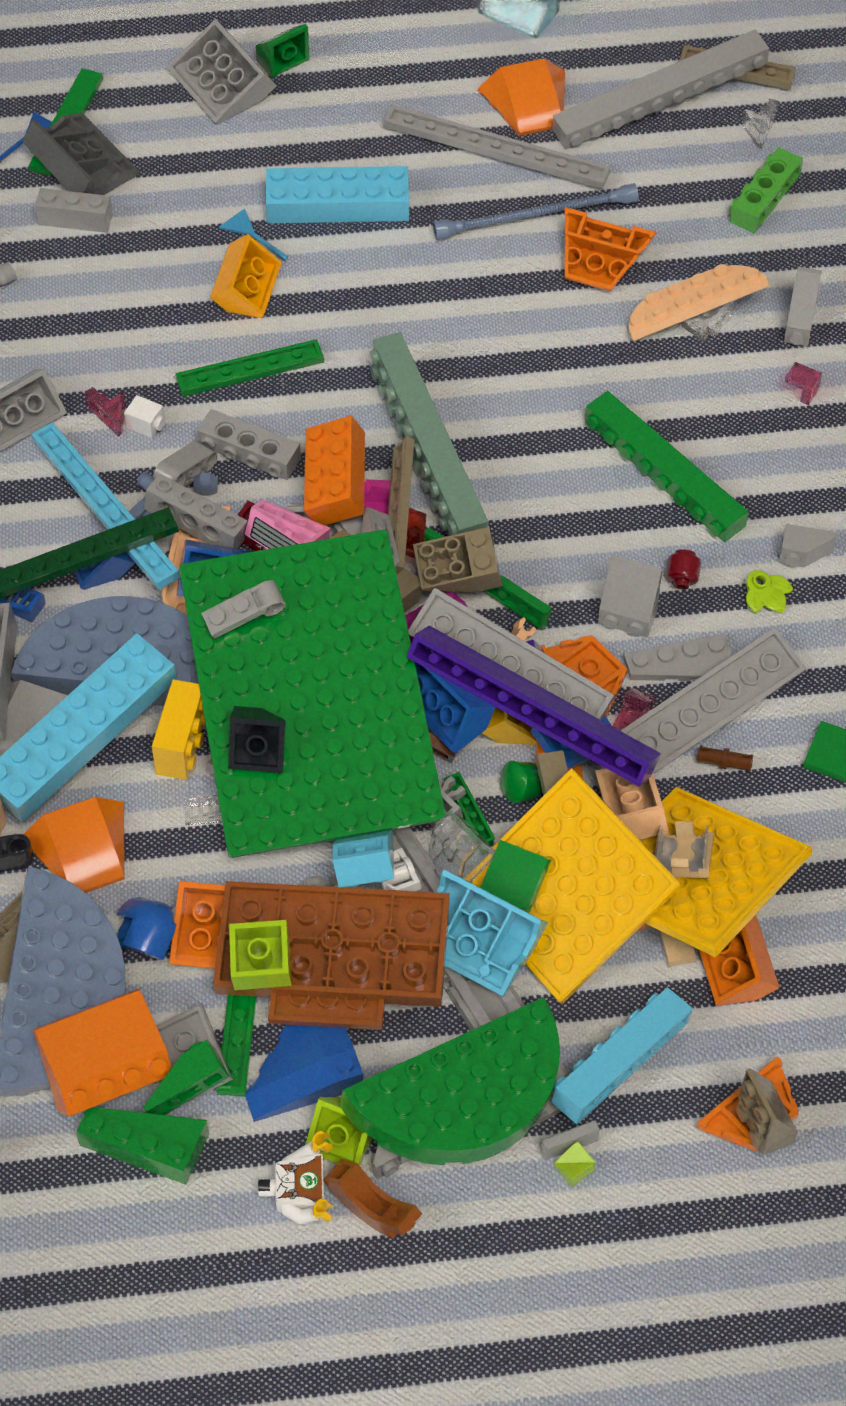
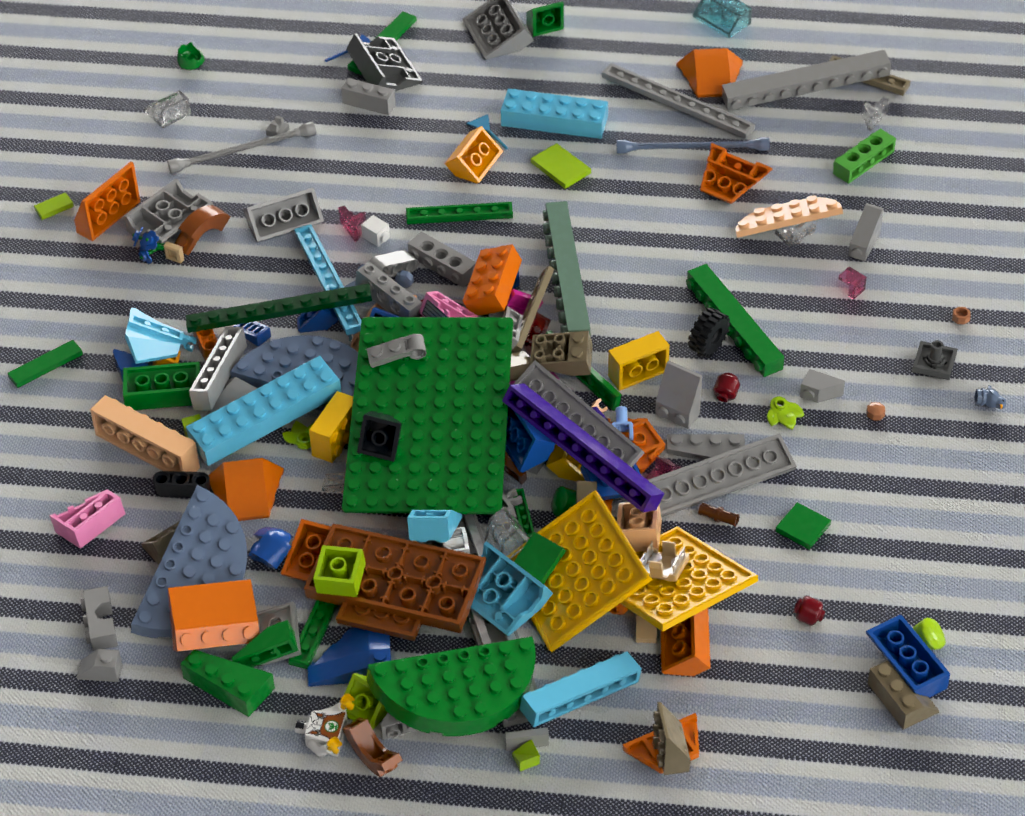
camera: 15 degrees right, 10 degrees down
(132, 745) = (298, 435): none -> lime plate
(367, 272) = (561, 165): none -> lime tile
(559, 552) = (638, 360): none -> yellow brick
(565, 651) = (622, 422): none -> light blue piece
(641, 494) = (708, 332): none -> black tyre

